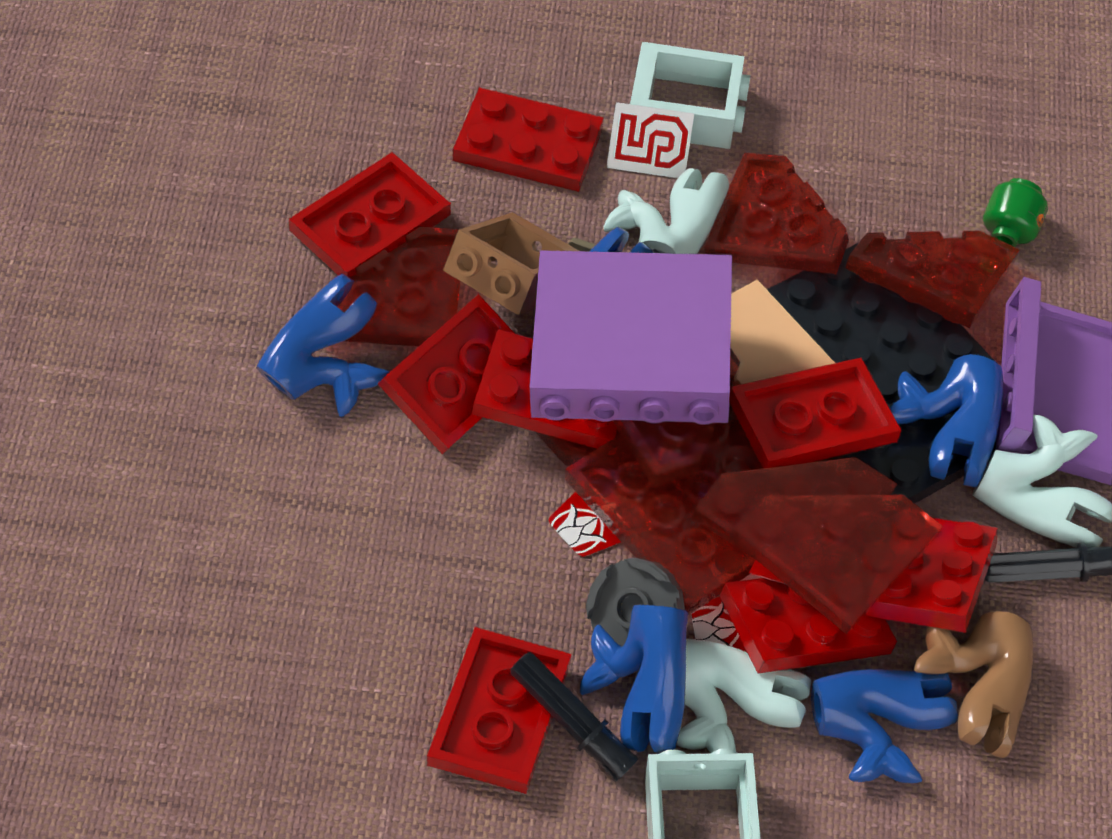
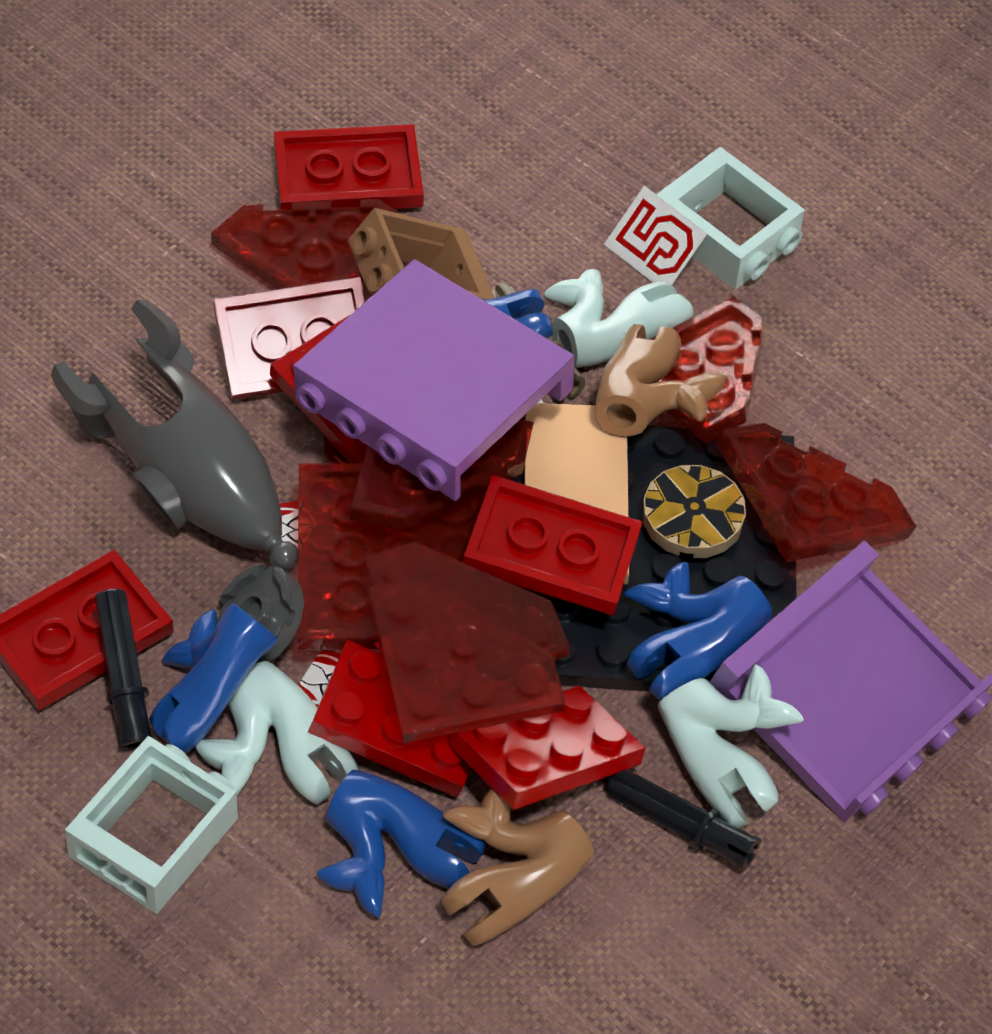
camera: 35 degrees right, 0 degrees up
(315, 326) = (212, 228): blue piece -> none
(491, 525) = (196, 463): none -> dark grey piece
(528, 139) = (553, 181): red plate -> none
(762, 274) = (628, 387): none -> medium nougat piece
(872, 328) = (693, 511): none -> tile
(1015, 212) = (944, 491): green head -> none

